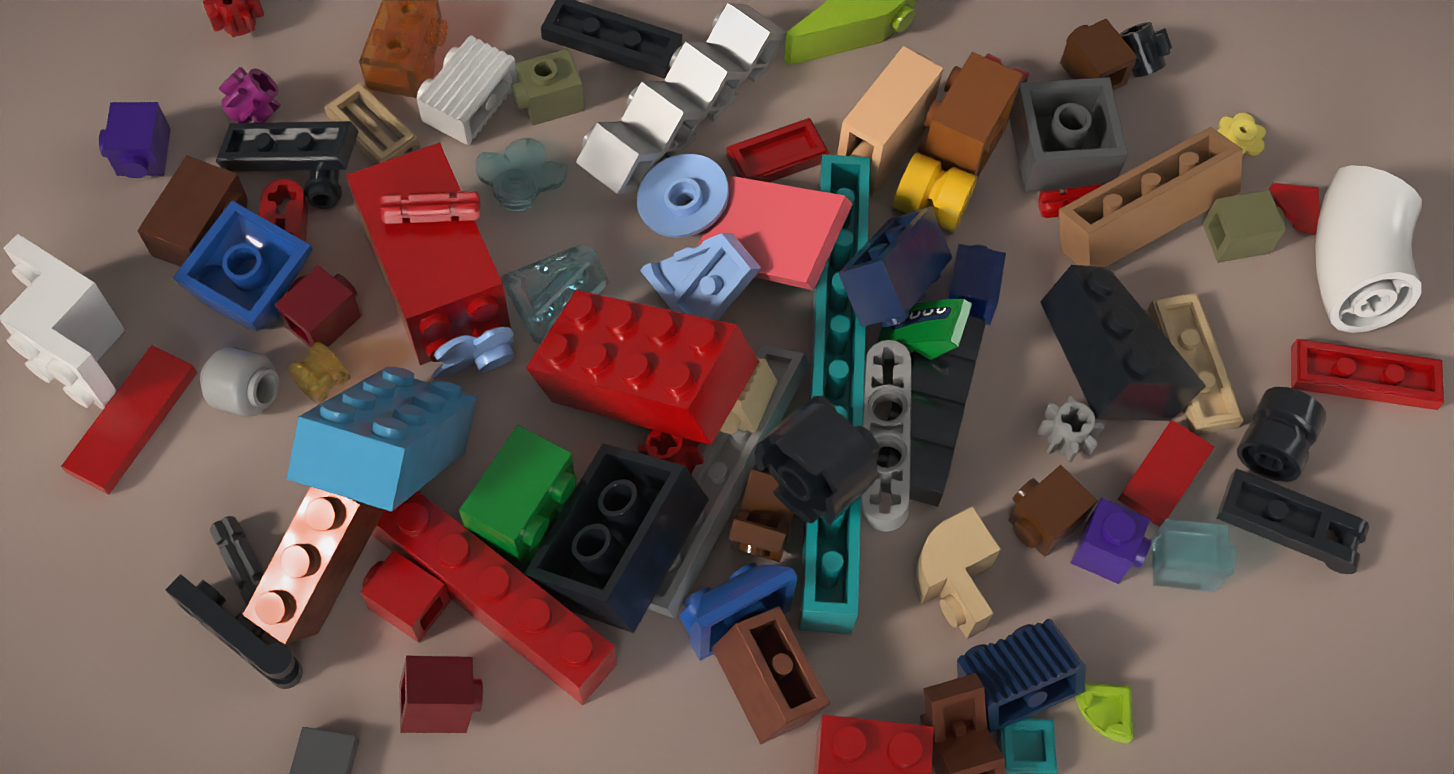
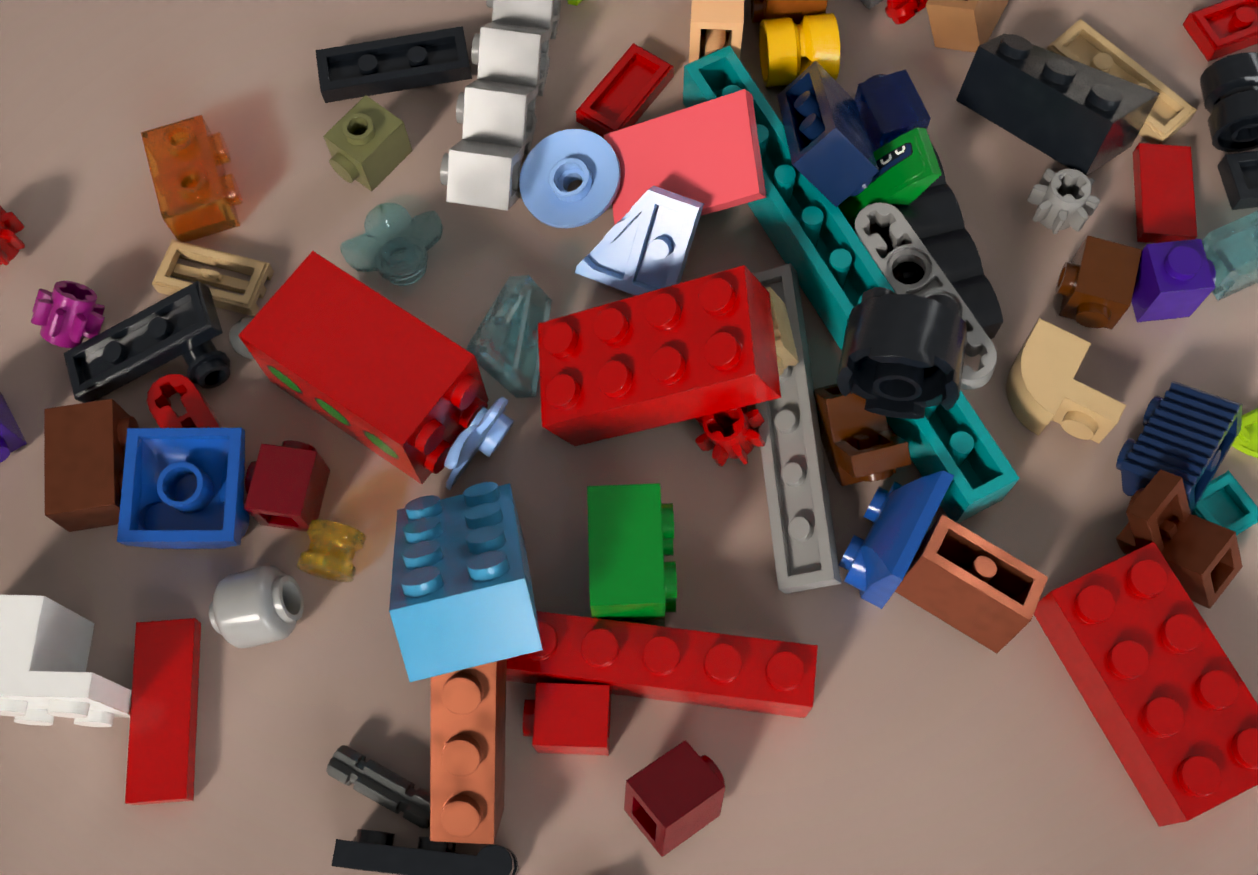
camera: 25 degrees left, 5 degrees up
(430, 207) = (351, 319): axle -> none
(467, 89) = (286, 189): white brick -> none
(618, 536) = (744, 537): black brick -> none

